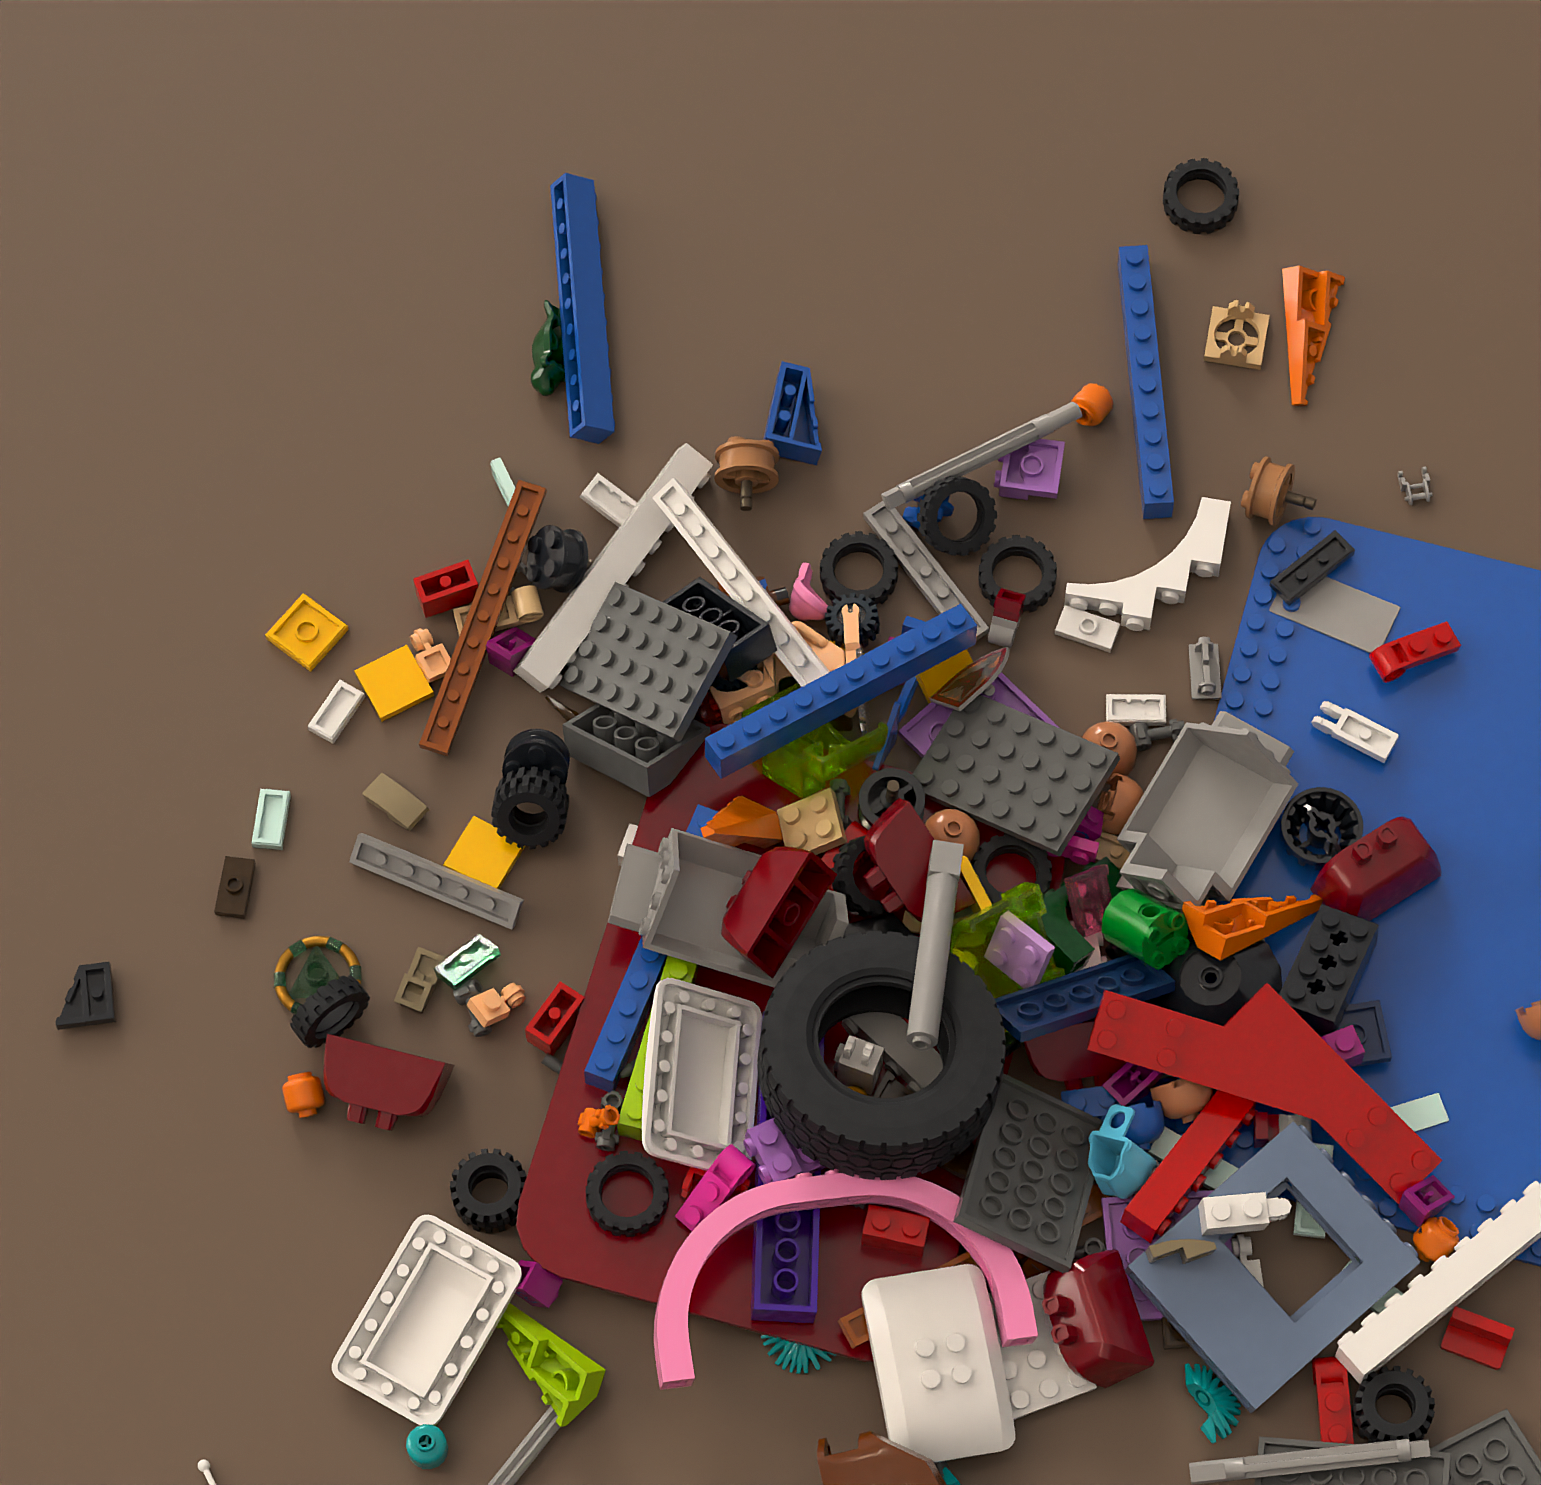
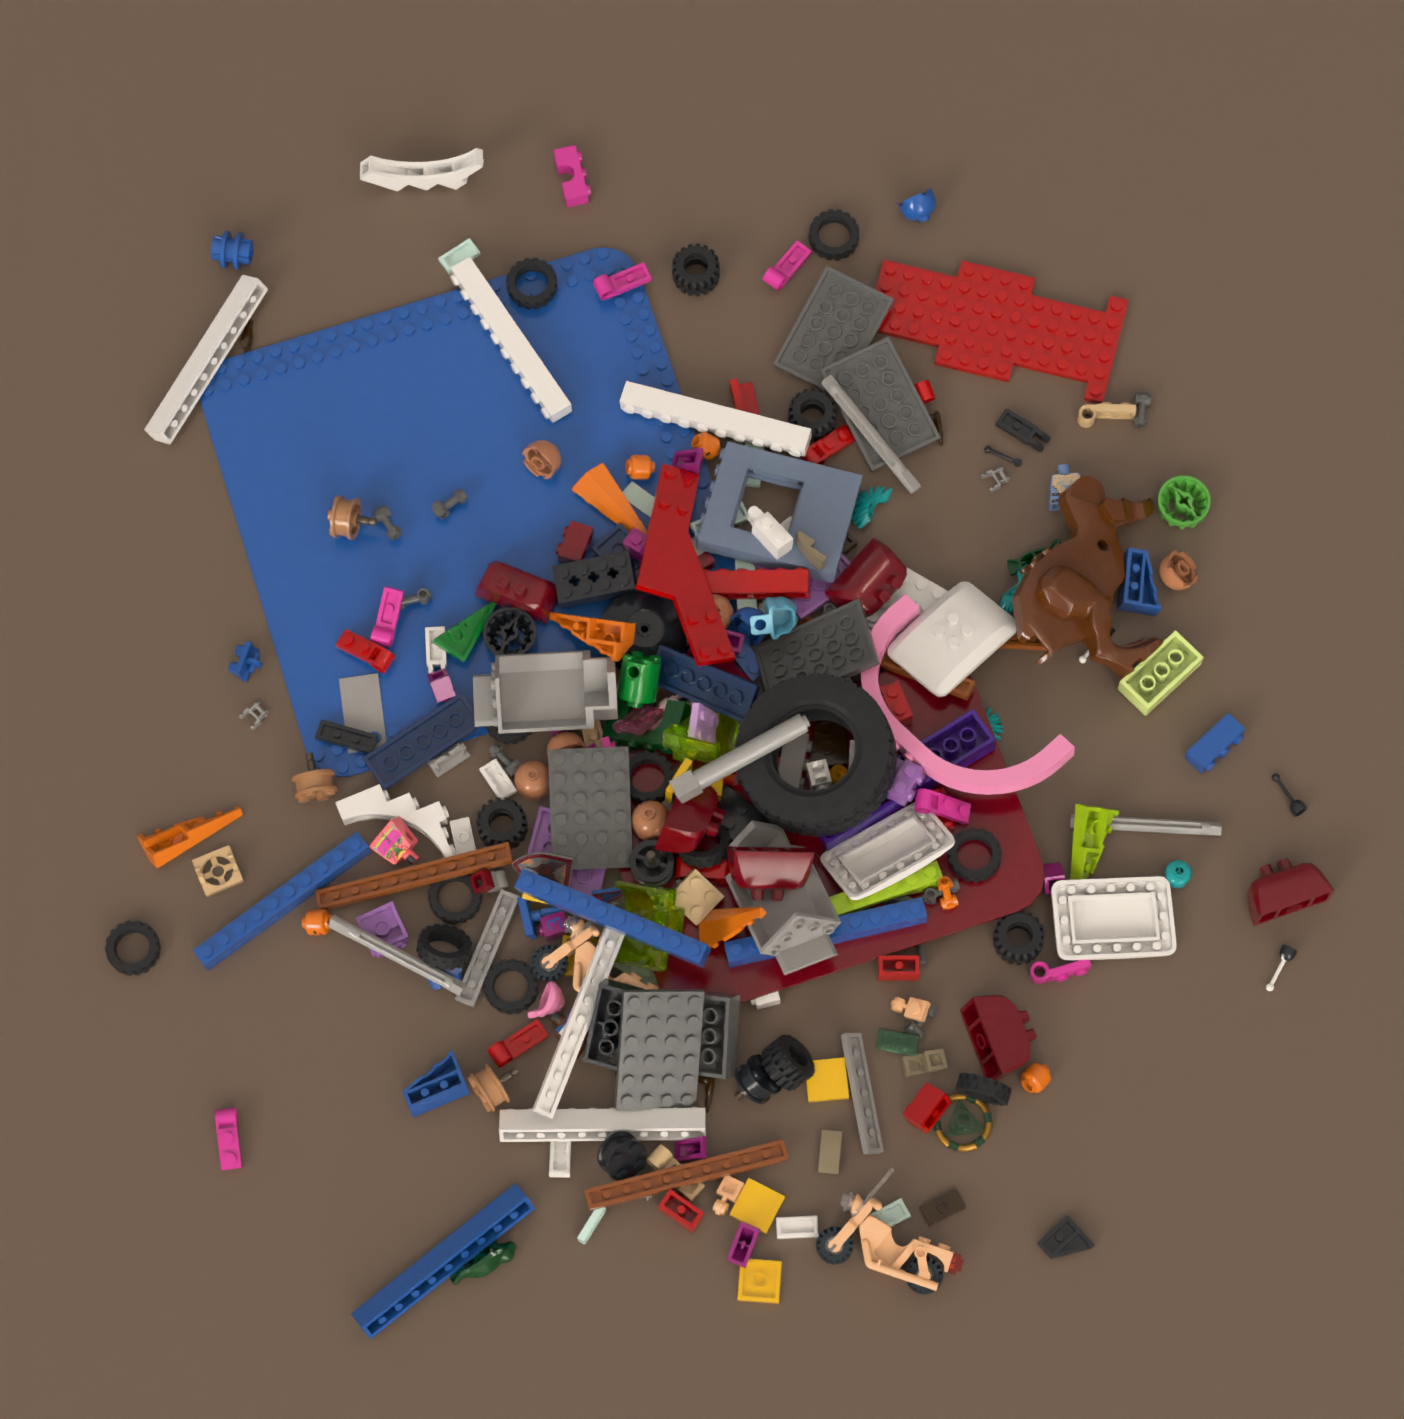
camera: 125 degrees left, 5 degrees up
(228, 767) = (879, 1249): none -> light nougat piece
(355, 629) = (743, 1244): none -> magenta slope
(361, 940) = (926, 1108): none -> red brick
(411, 1208) = (1059, 973): none -> dark pink plate
(781, 536) = (517, 1044): none -> red plate
(895, 171) = (228, 1138): none -> dark pink plate
(1070, 536) = (414, 876): none -> dark orange plate
(1071, 697) = (502, 808): none -> black tyre
(1129, 541) = (396, 842): none -> torso
(1245, 644) = (421, 742): none -> dark blue plate
(1304, 706) = (441, 685): none -> brick
(1356, 771) = (461, 638): none -> green wing
(1398, 984) = (575, 543): none -> dark red brick
(1440, 697) = (388, 616): none -> dark pink plate
(1446, 759) = (422, 596): none -> dark grey bar
(1451, 1064) = (604, 494): none -> orange wedge
(1458, 1132) = (639, 467): none -> orange head
(1492, 511) = (247, 662): none -> blue hips

